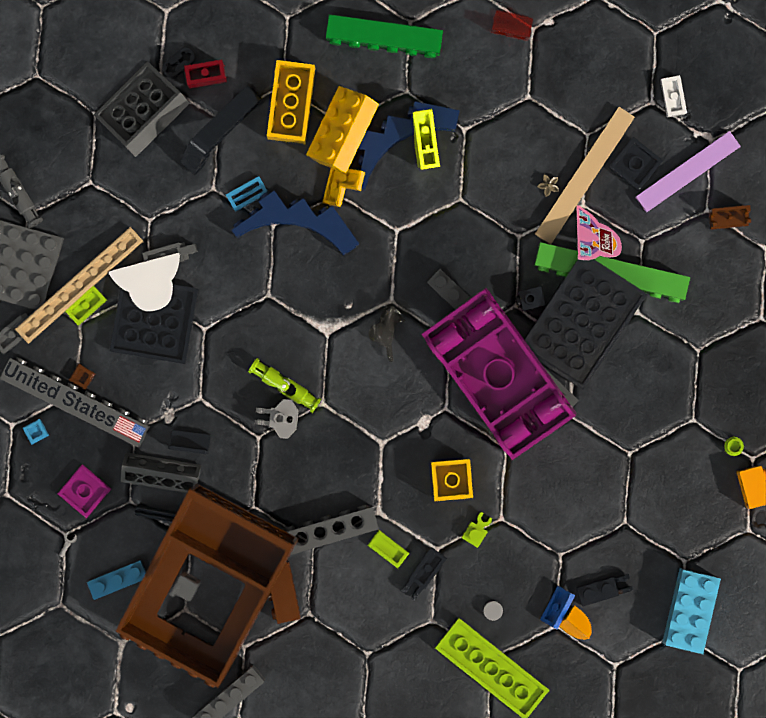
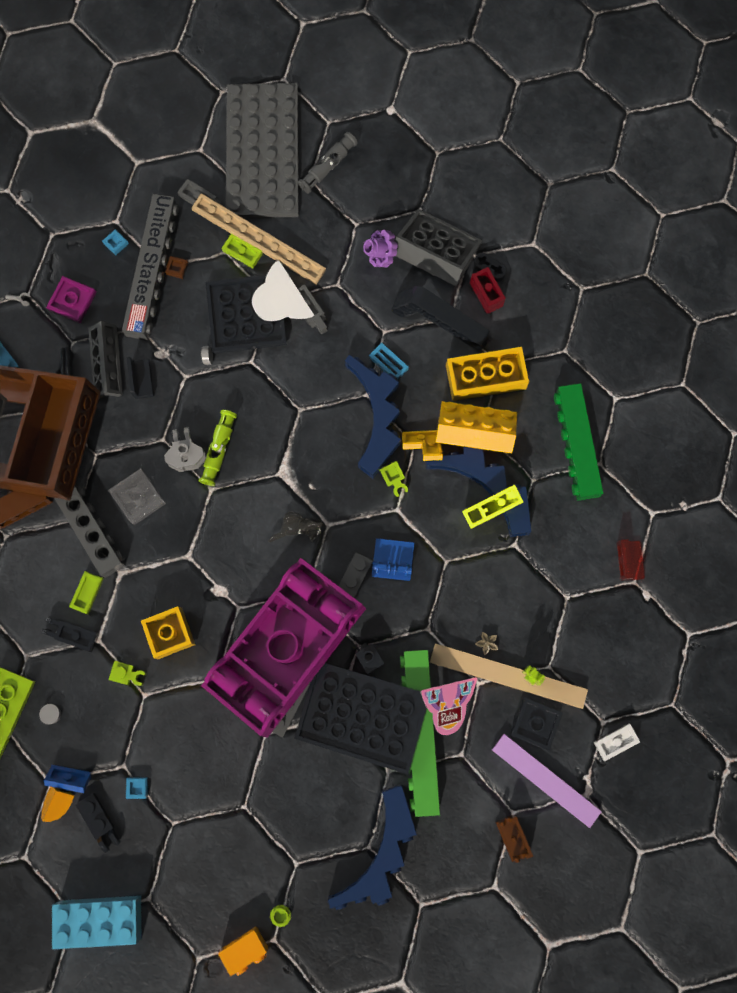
camera: 80 degrees right, 10 degrees down
(129, 165) = (381, 248): none -> medium lavender plant
(186, 370) = (207, 355): none -> light grey tile
(311, 475) = (137, 497): none -> clear brick
(363, 224) = (393, 475): none -> lime plate
(444, 249) = (393, 559): none -> blue hinge
(584, 547) = (137, 788): none -> dark azure tile
(593, 153) = (533, 676): none -> lime plate
(712, 334) = (388, 858): none -> dark blue arch

